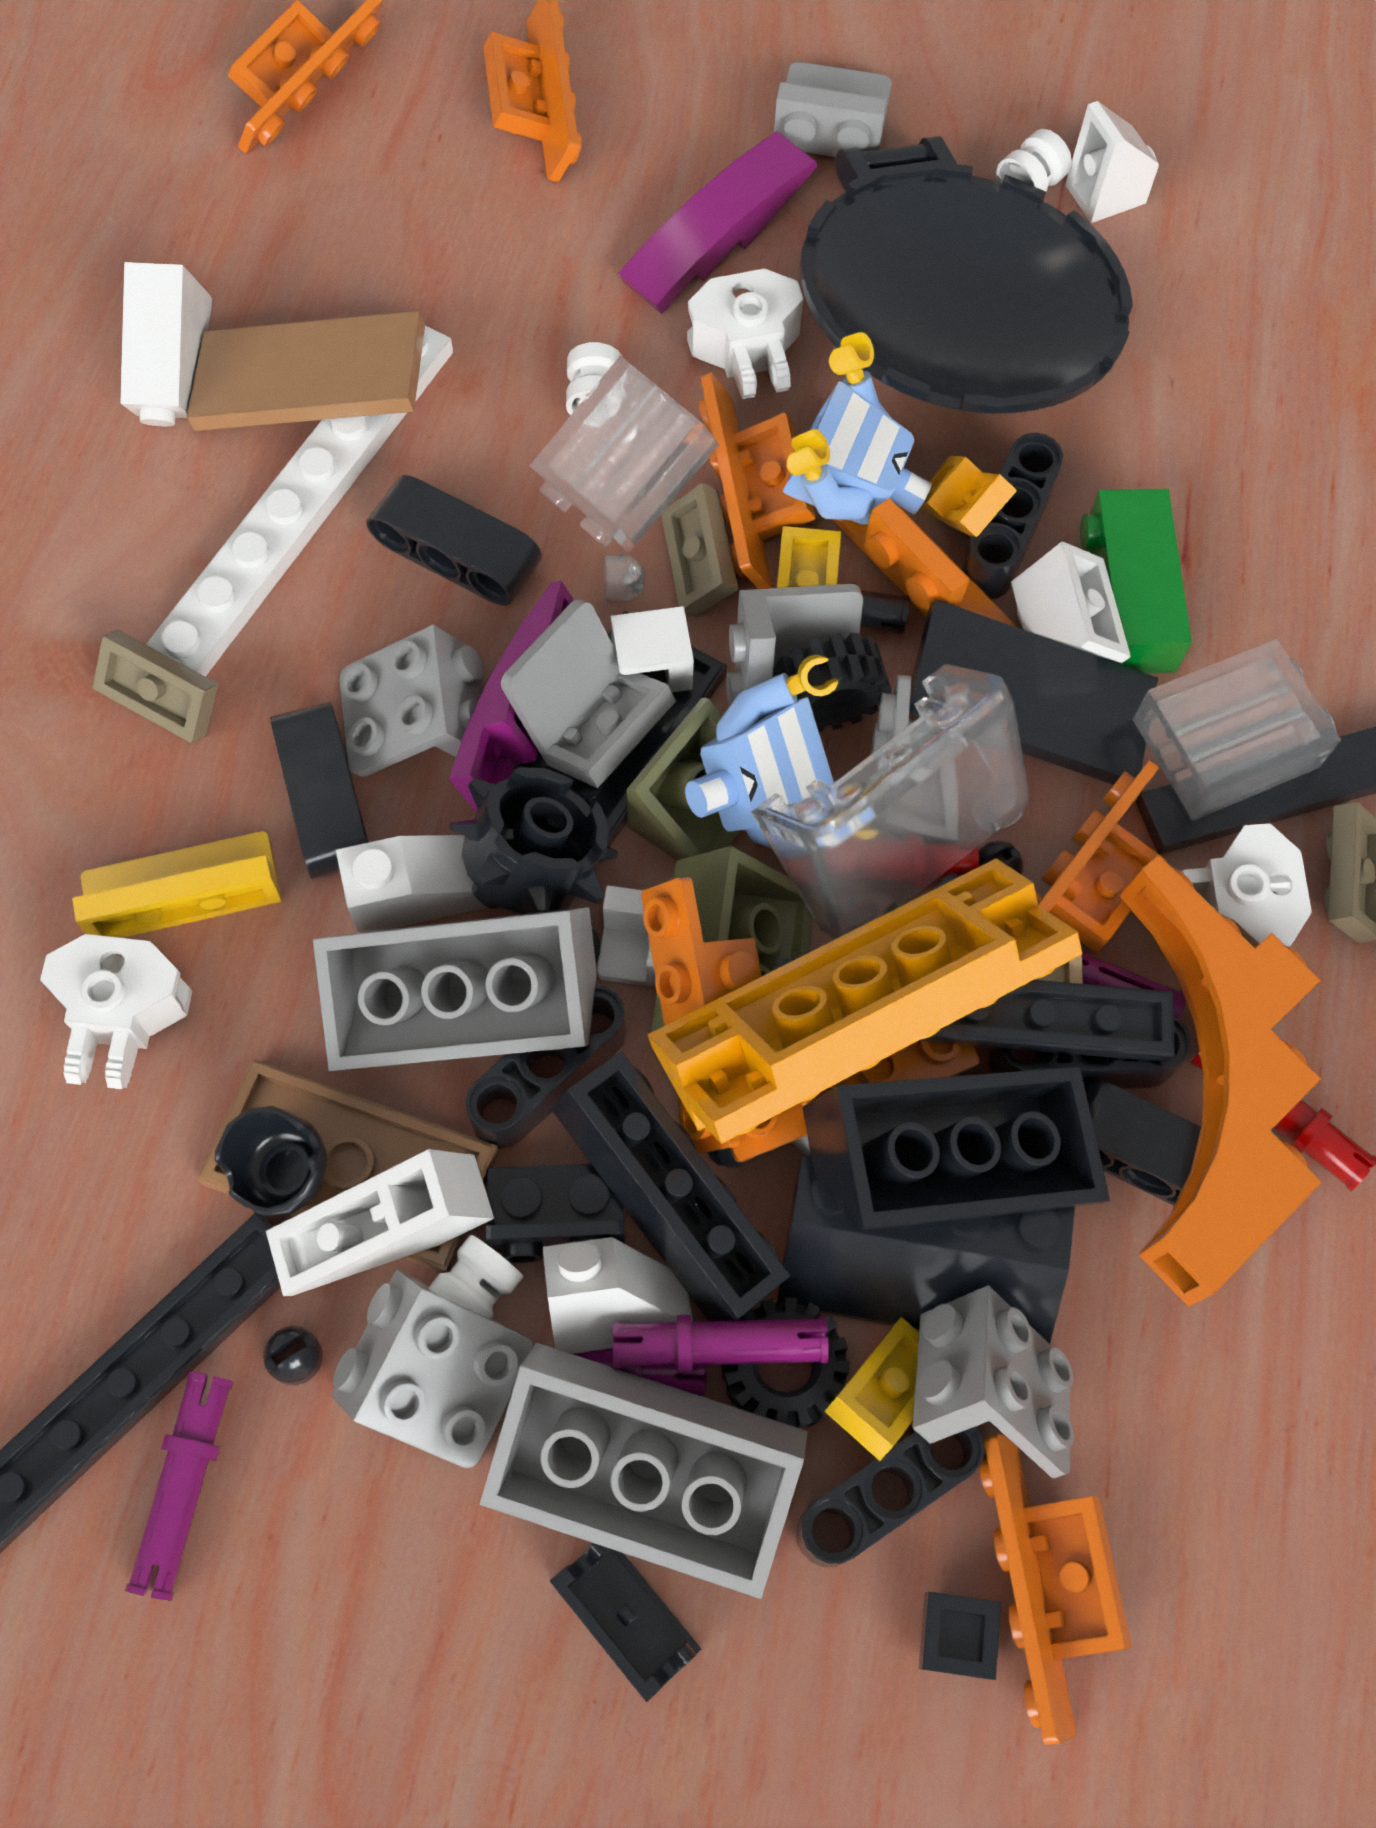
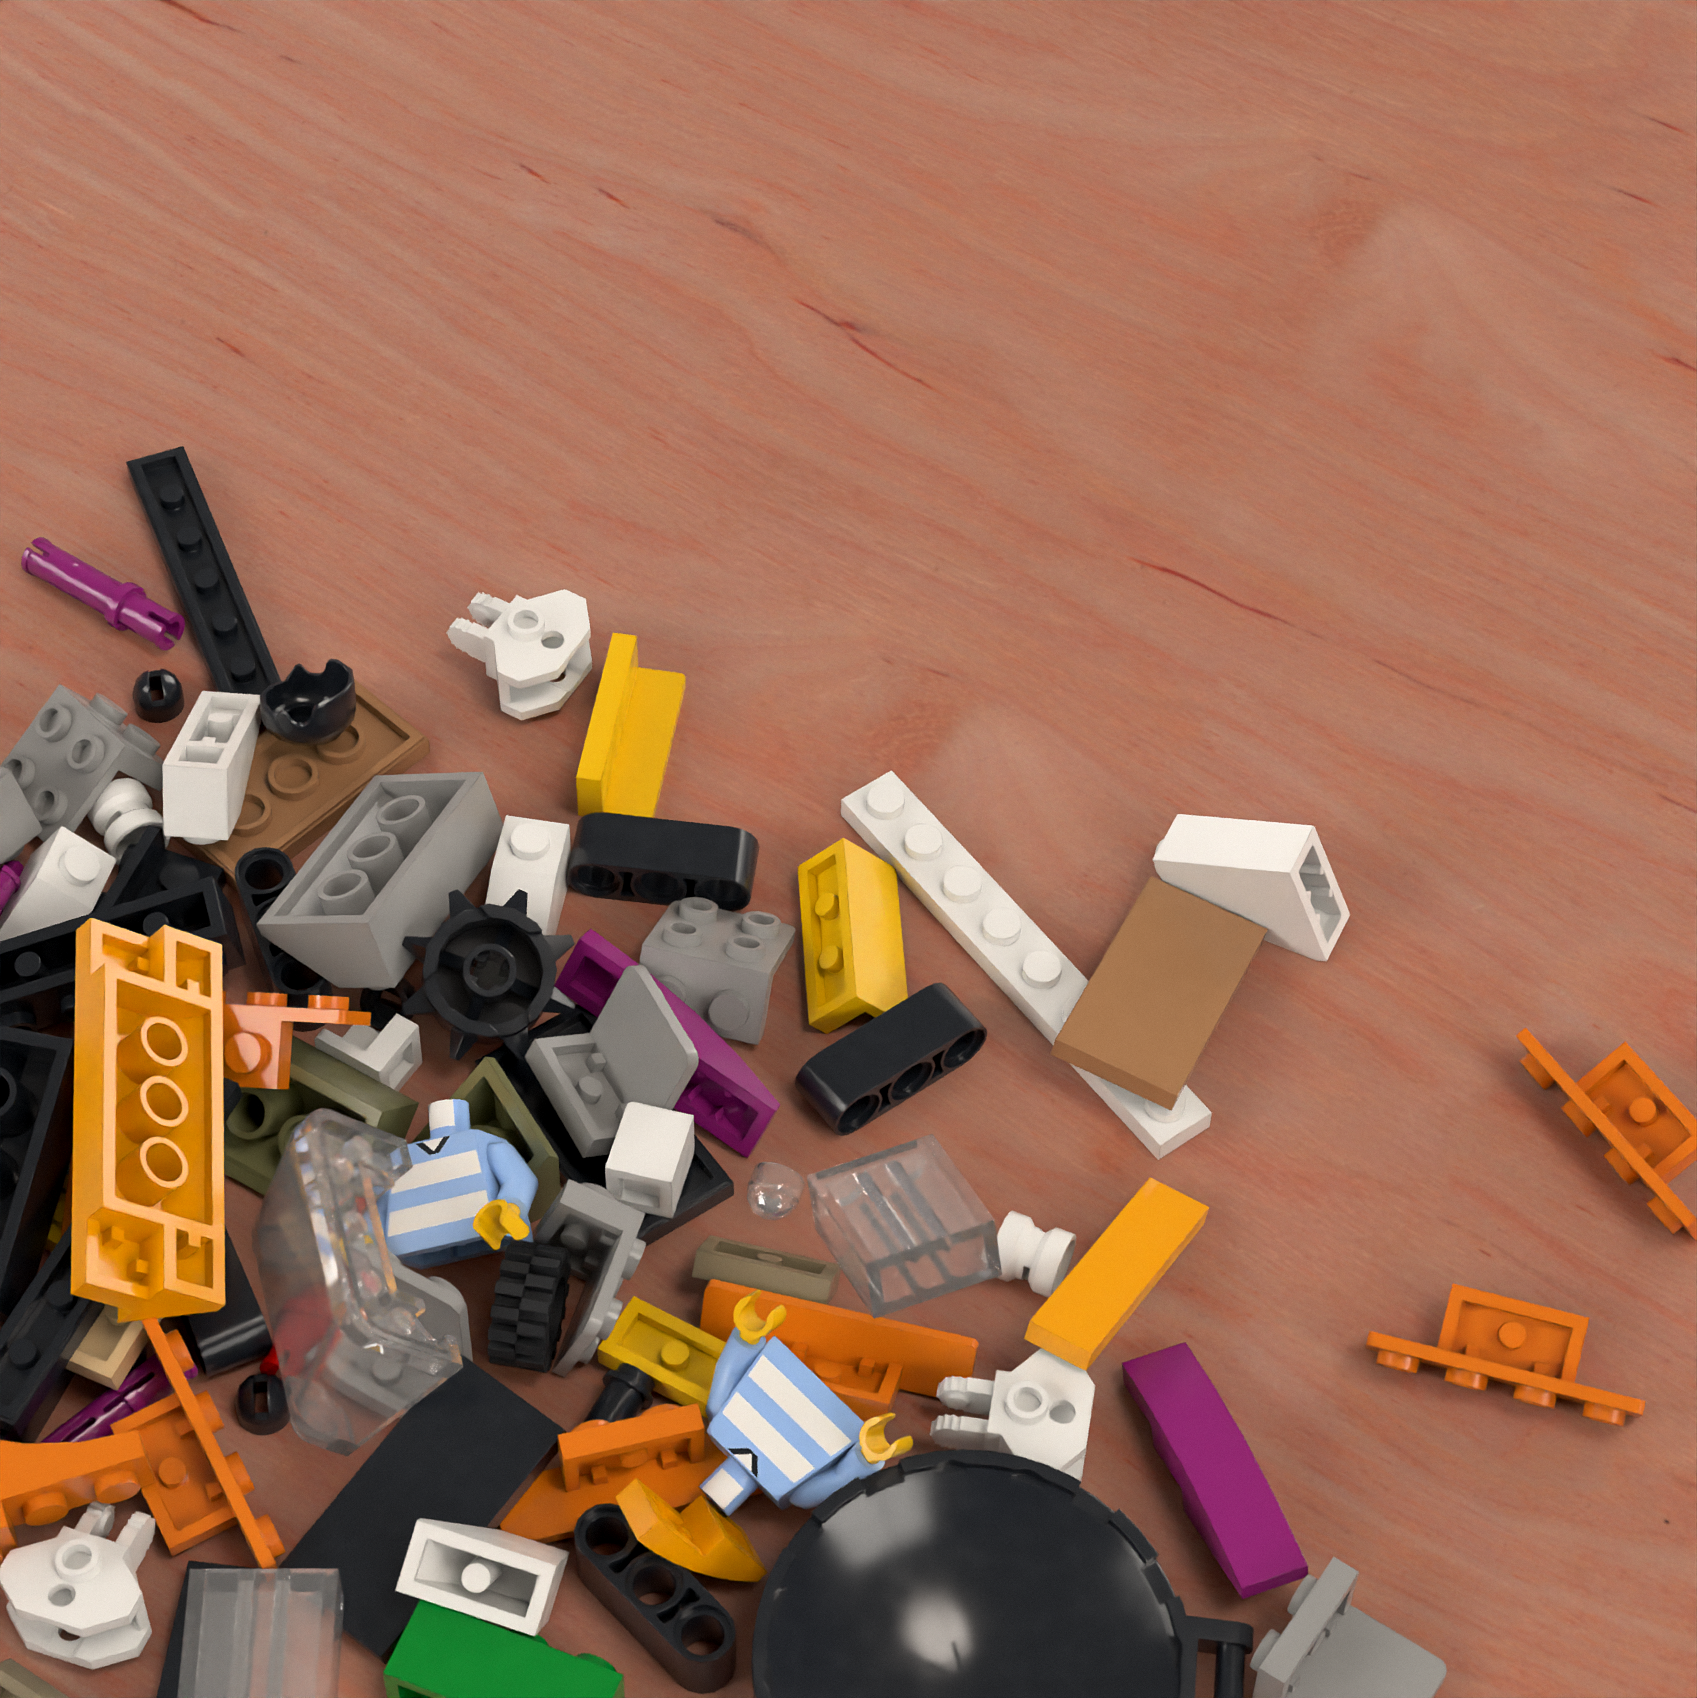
camera: 115 degrees right, 15 degrees down
(154, 686) = (863, 759): dark tan plate -> none
(342, 619) = (850, 935): none -> yellow panel
(595, 309) = (1116, 1274): none -> light orange tile

